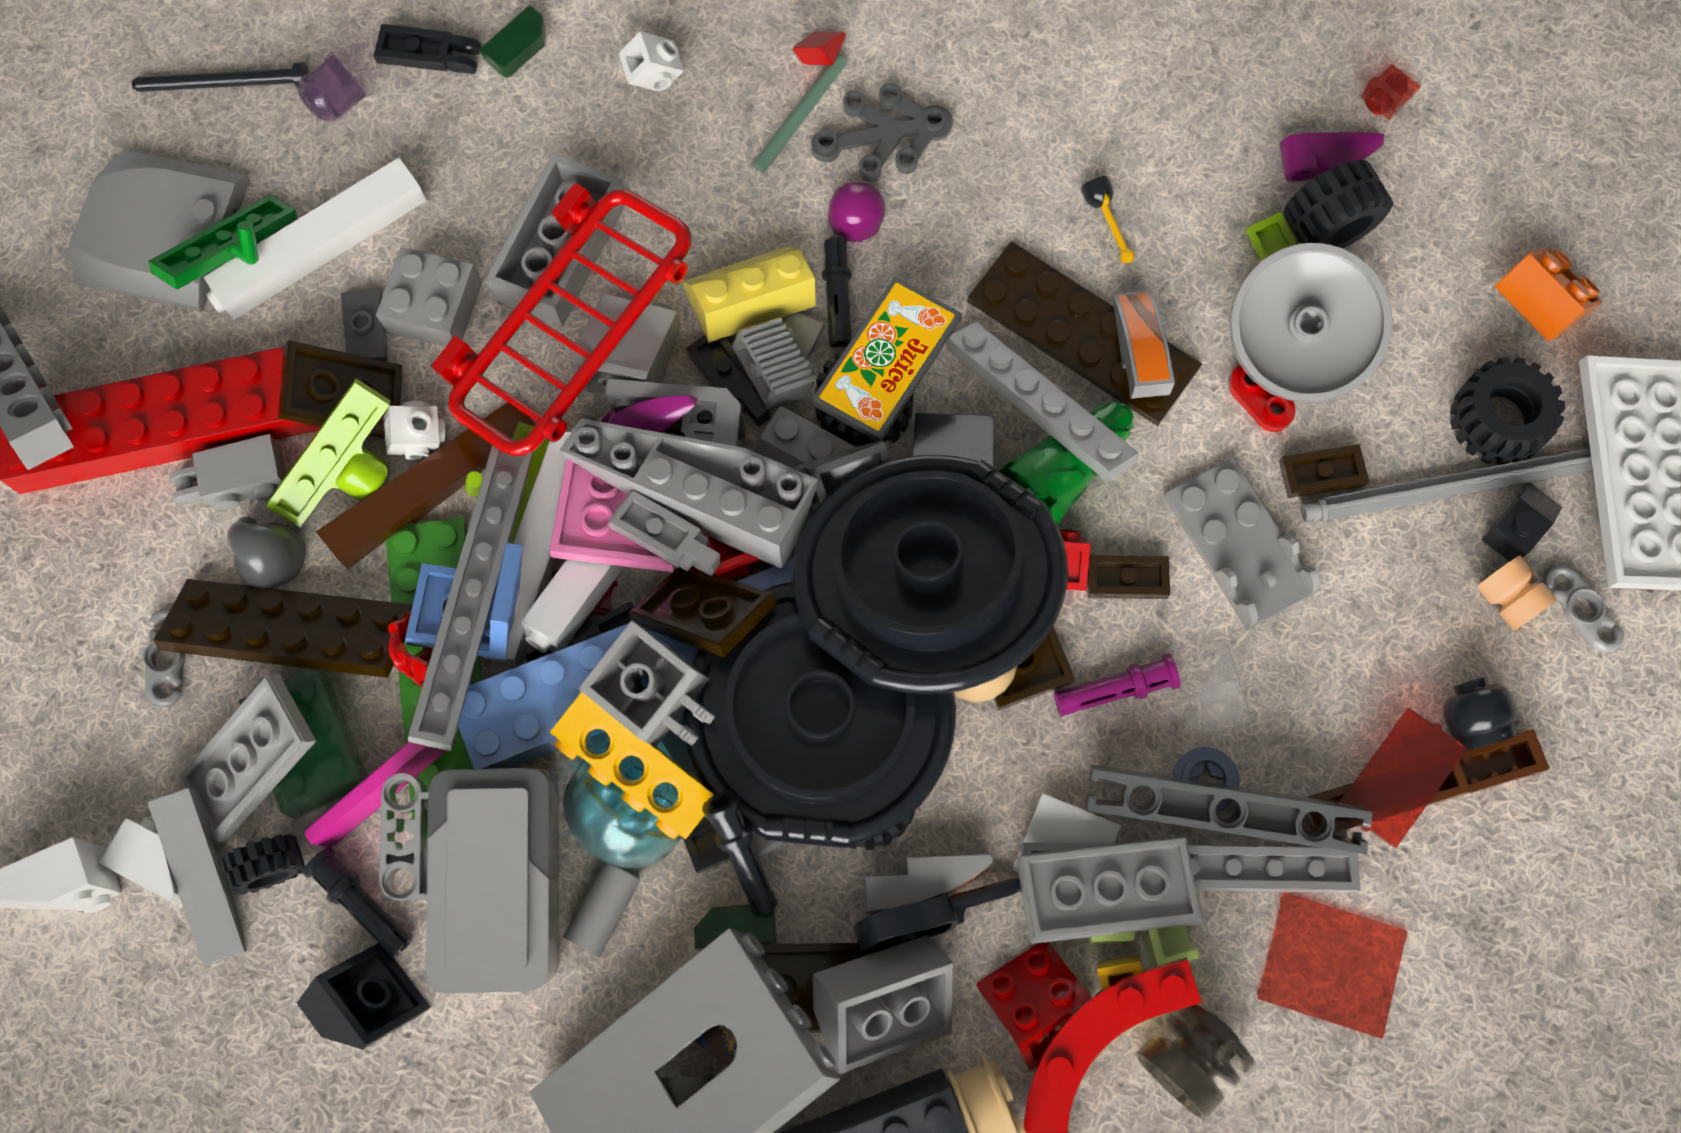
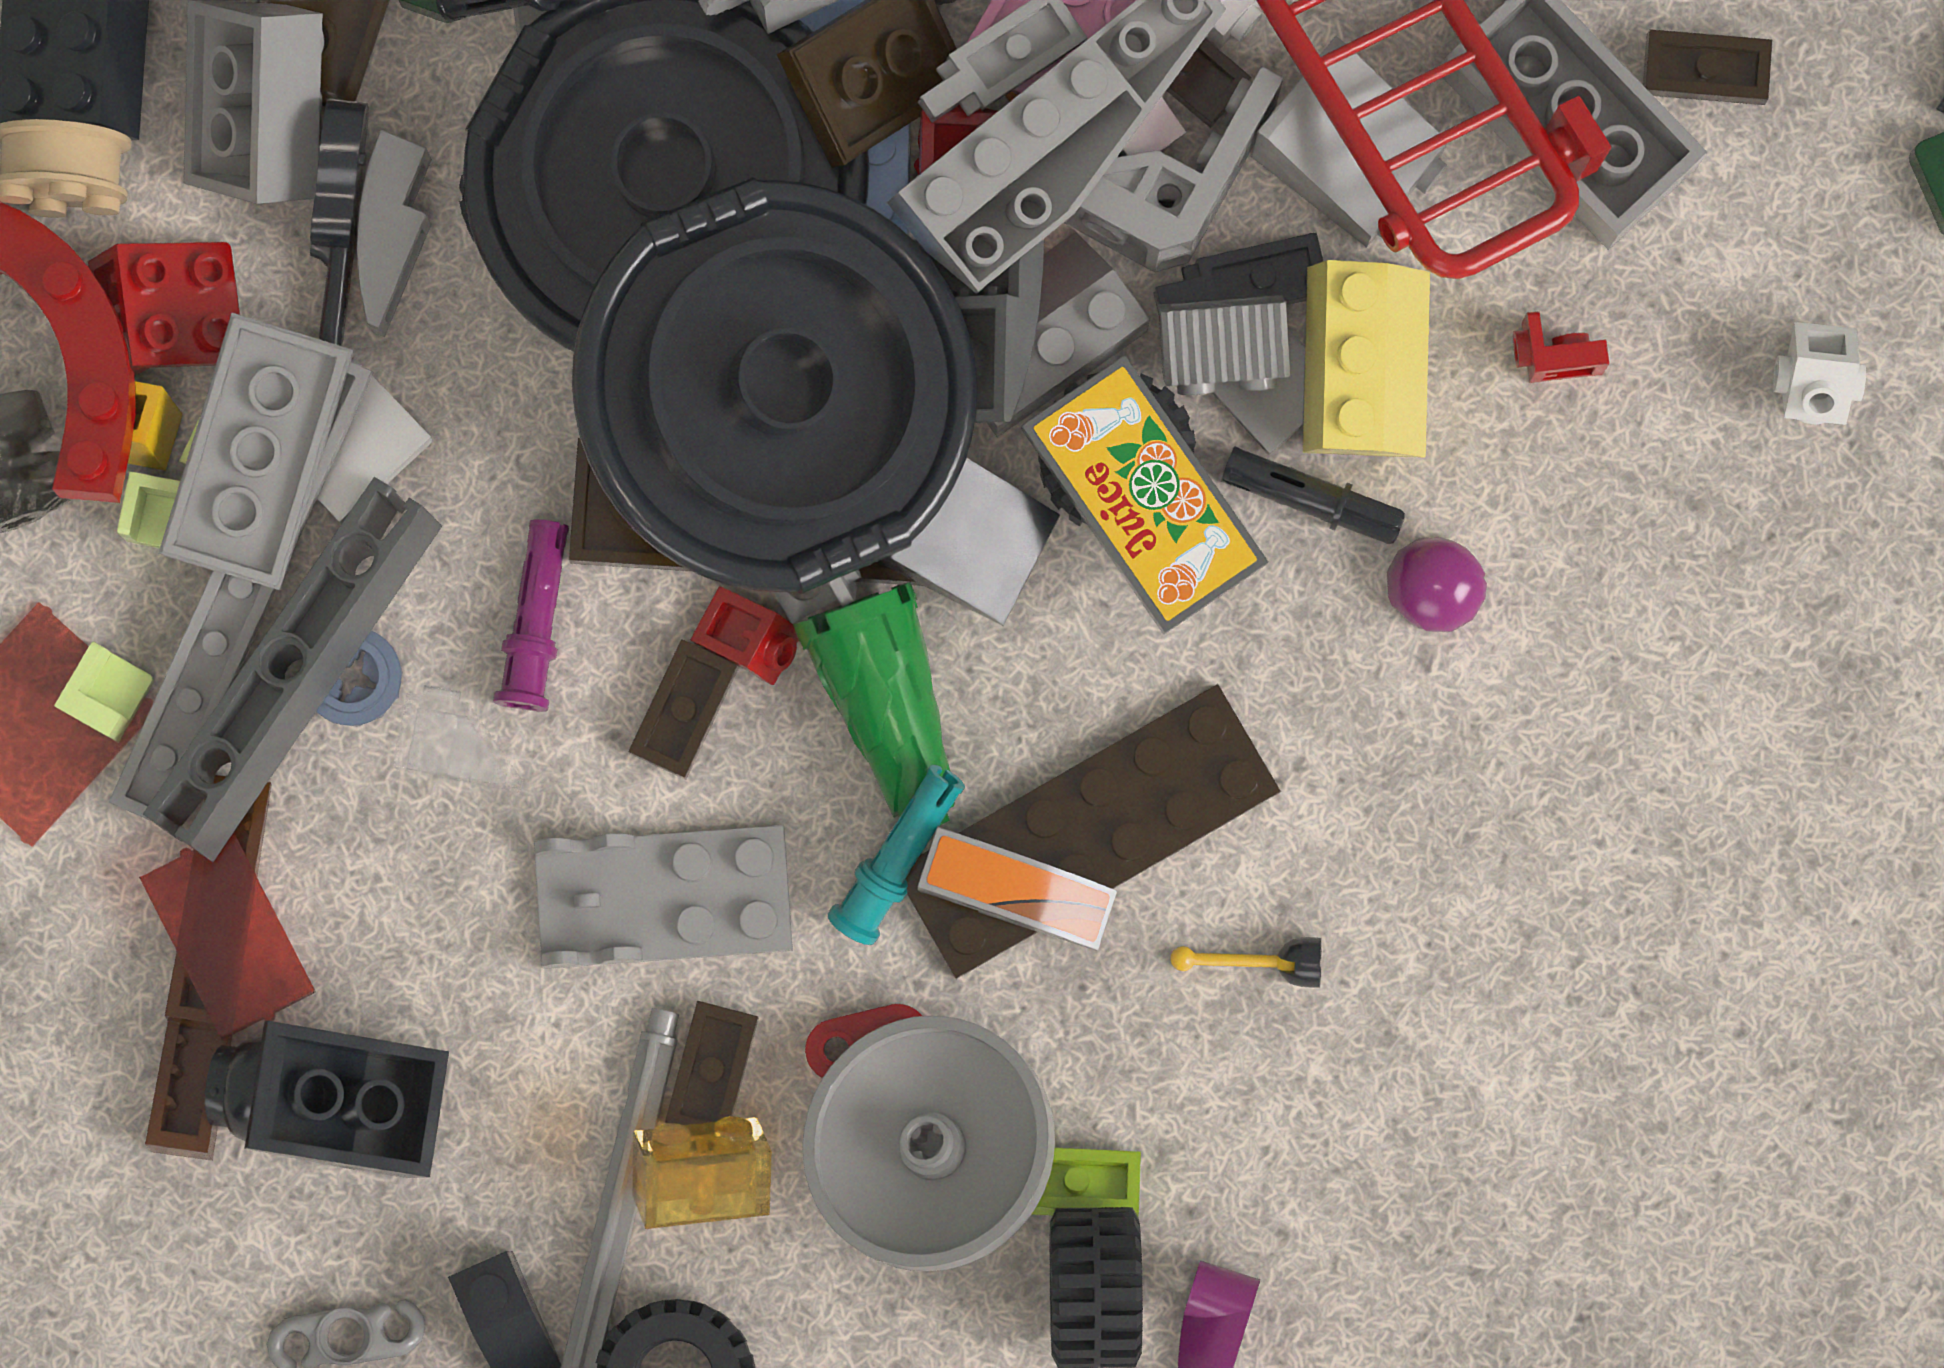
camera: 110 degrees right, 10 degrees up
(499, 188) = (1707, 67): none -> dark brown plate
(652, 414) = (1197, 98): magenta piece -> none
(702, 200) = (1567, 358): none -> red bracket
(799, 114) = (1645, 574): sand green bar -> none
(819, 48) = (1744, 651): red slope -> none
(886, 131) = (1549, 692): dark grey plant -> none
(1042, 401) = (989, 695): light grey plate -> none
(1170, 419) = (882, 878): none -> teal pin
(1297, 924) = (104, 692): none -> yellowish green panel
(1389, 443) = (701, 1172): none -> clear yellow brick
(1464, 650) = (346, 1100): none -> black slope
(1516, 593) = (405, 1241): light nougat wheel -> none

